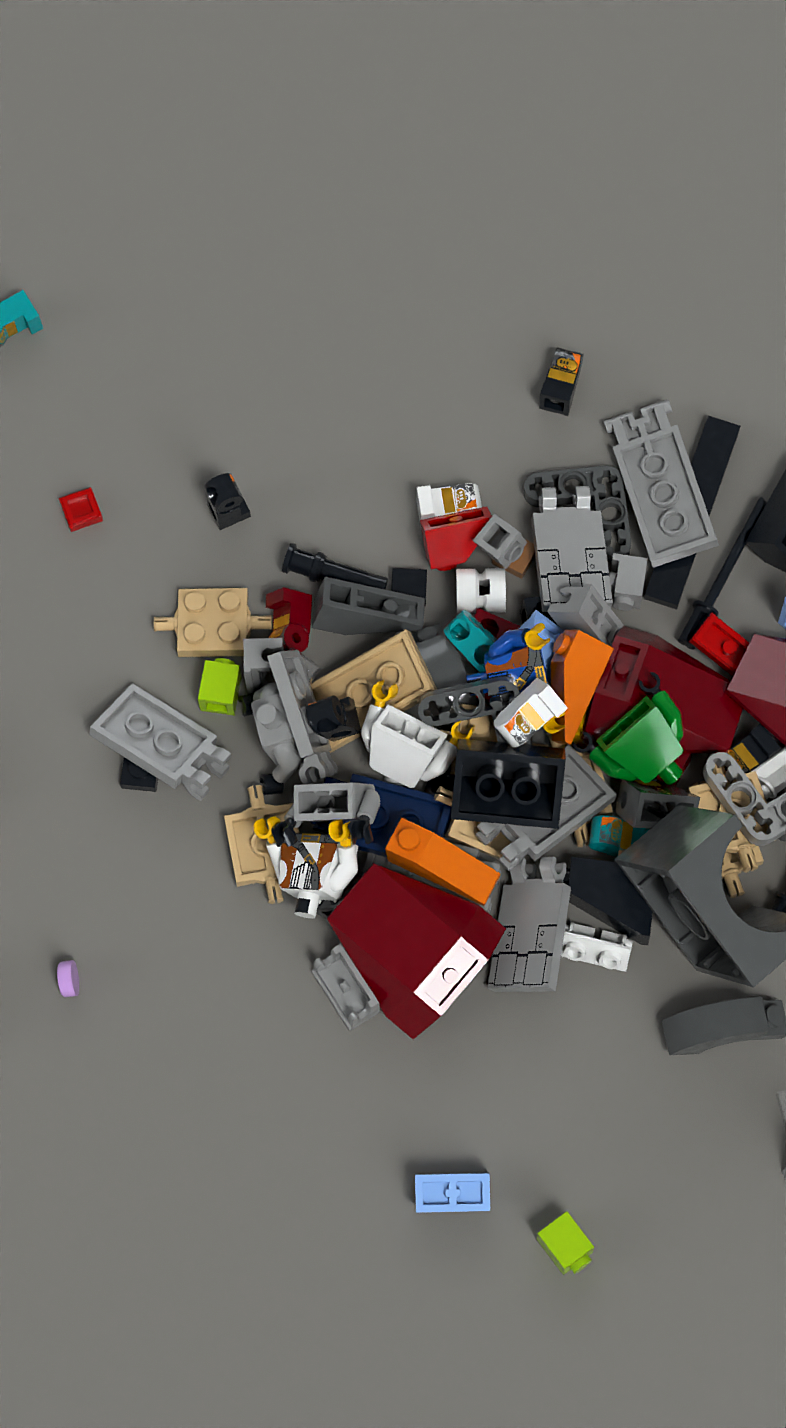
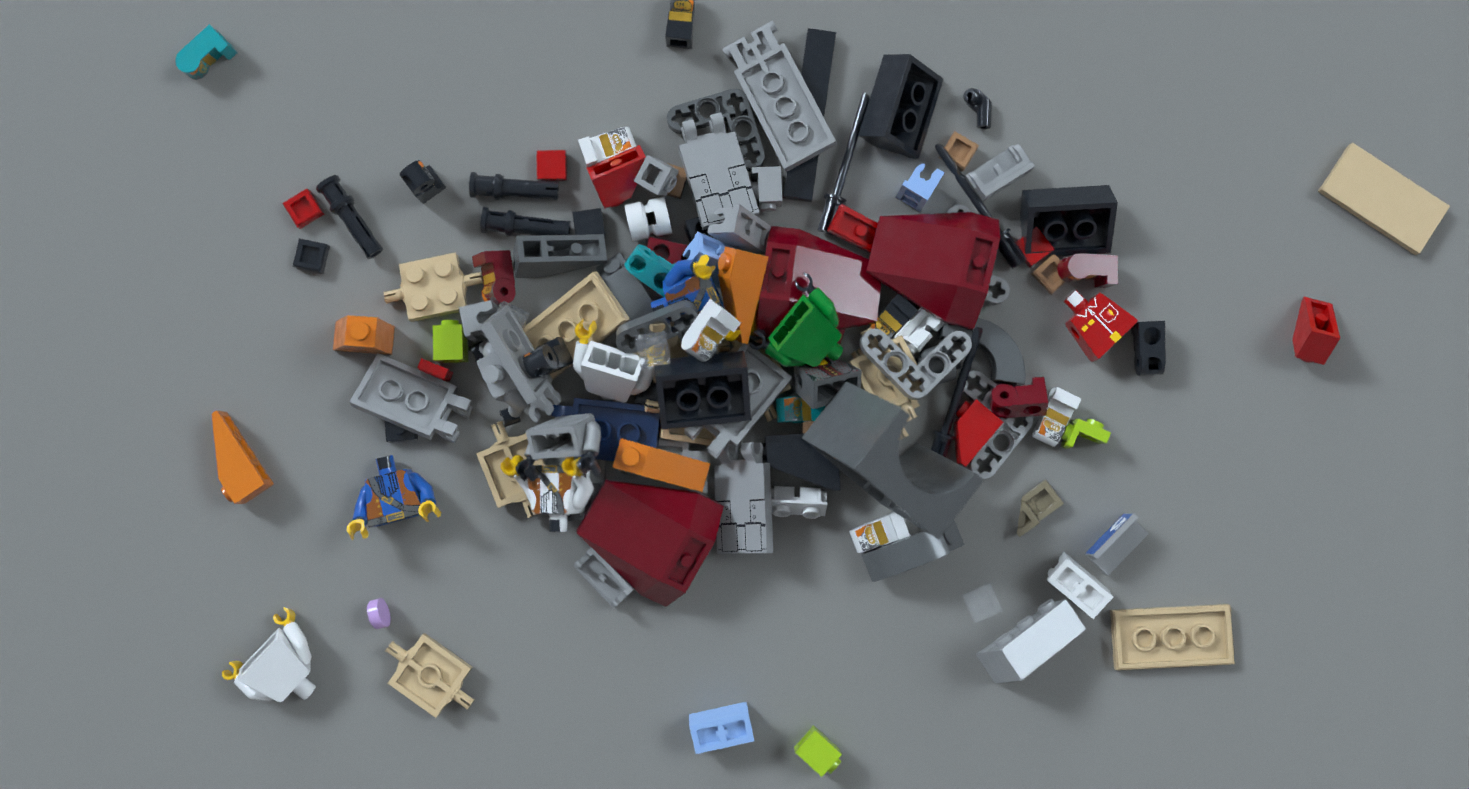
camera: 15 degrees left, 15 degrees up
(78, 563) = (311, 256): none -> black tile
(113, 1062) = (430, 675): none -> tan plate
(114, 848) = (391, 498): none -> torso
(121, 656) = (363, 335): none -> orange slope
(128, 514) = (343, 206): none -> black pin
(196, 712) = (435, 370): none -> red tile
(313, 524) = (500, 187): none -> black pin
(378, 513) = (551, 165): none -> red tile
(459, 722) = (653, 349): none -> clear plate
(684, 996) = (879, 532): none -> white leg

